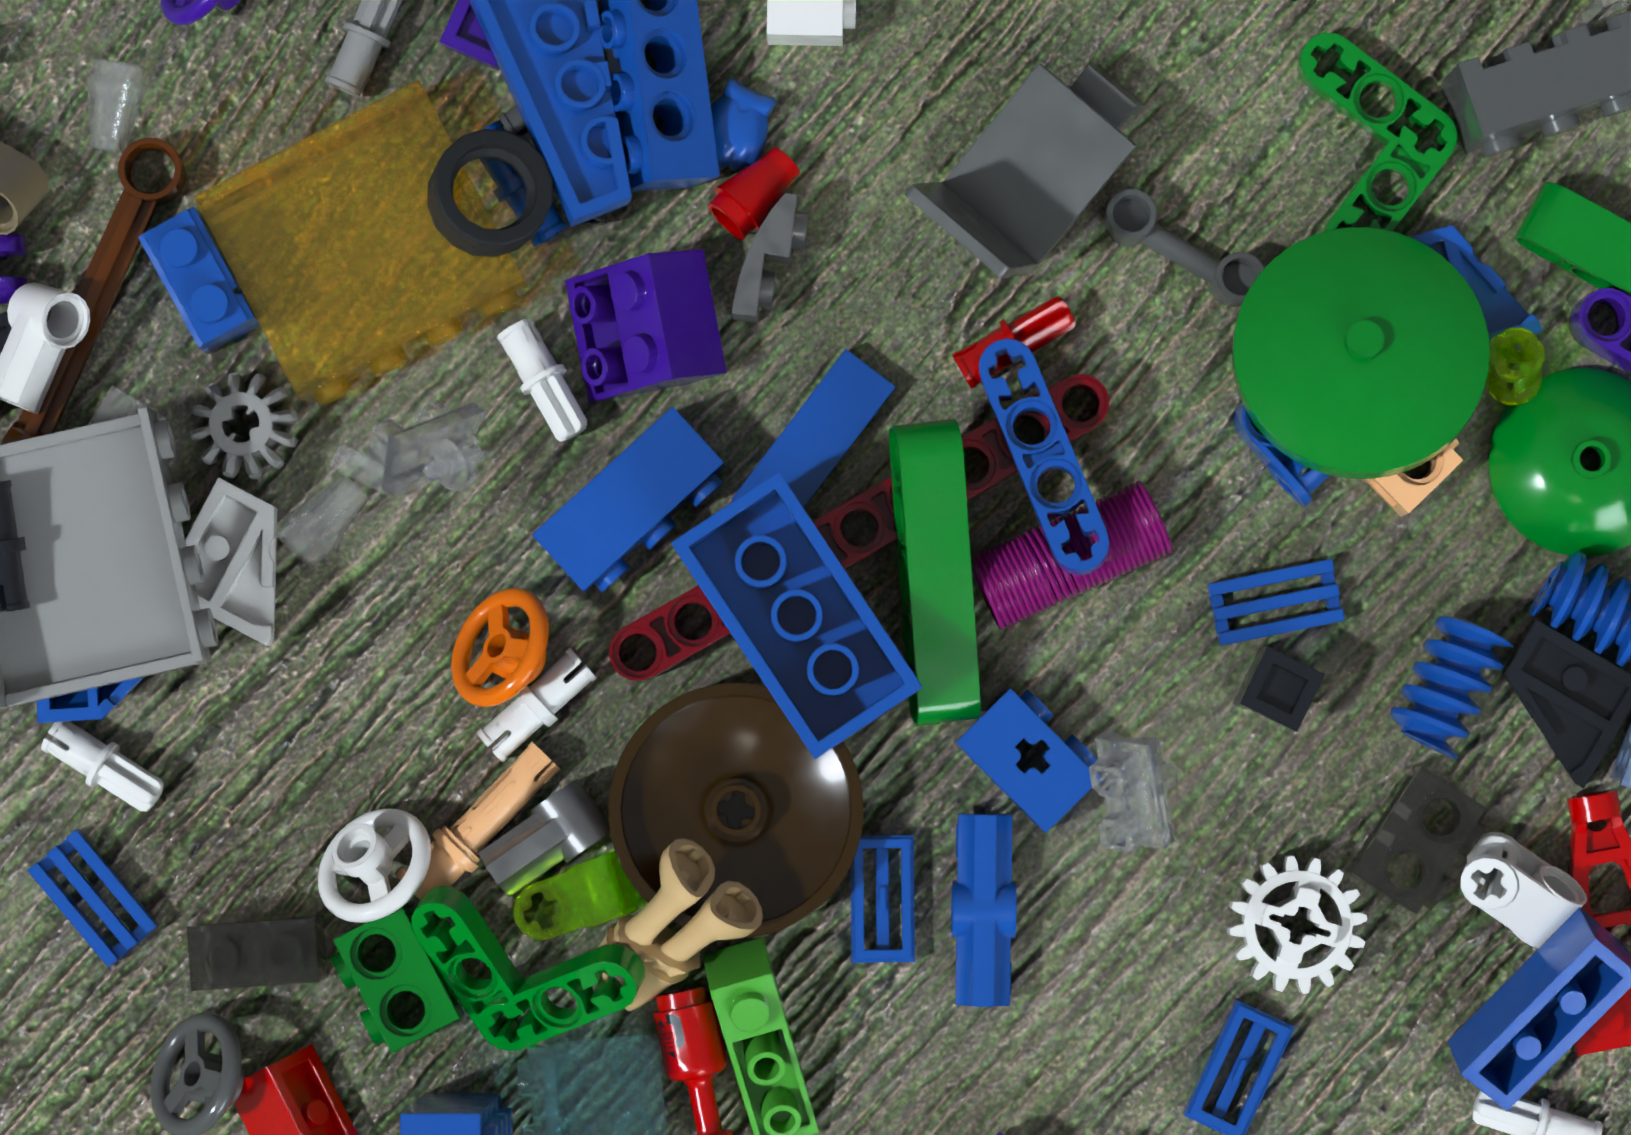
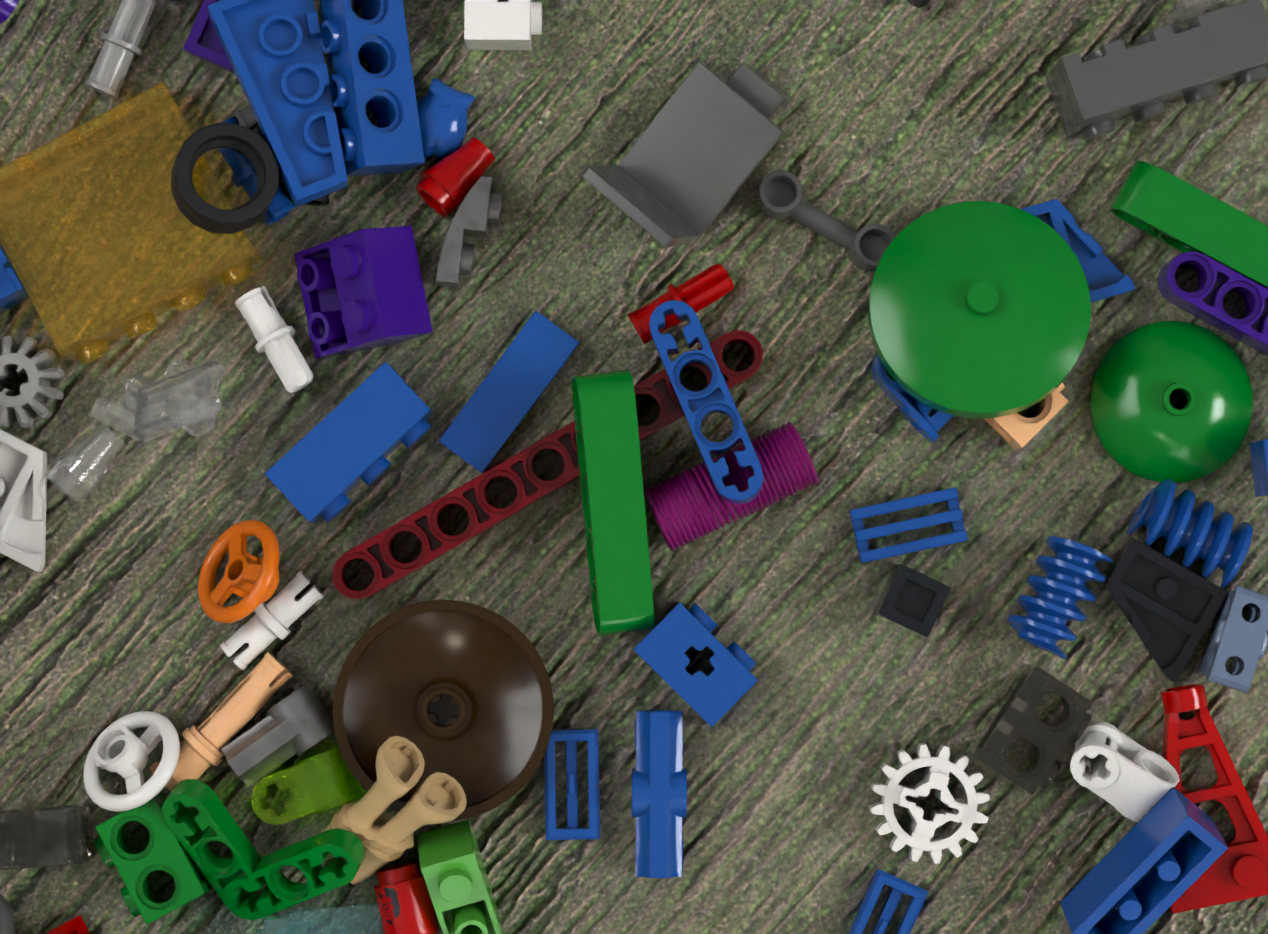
camera: 10 degrees left, 0 degrees up
(796, 615) = (491, 542): blue brick -> none
(1134, 791) = (788, 690): clear hips -> none
(1399, 151) = (1010, 135): green beam -> none
(1526, 379) = (1123, 330): clear neon green bush -> none

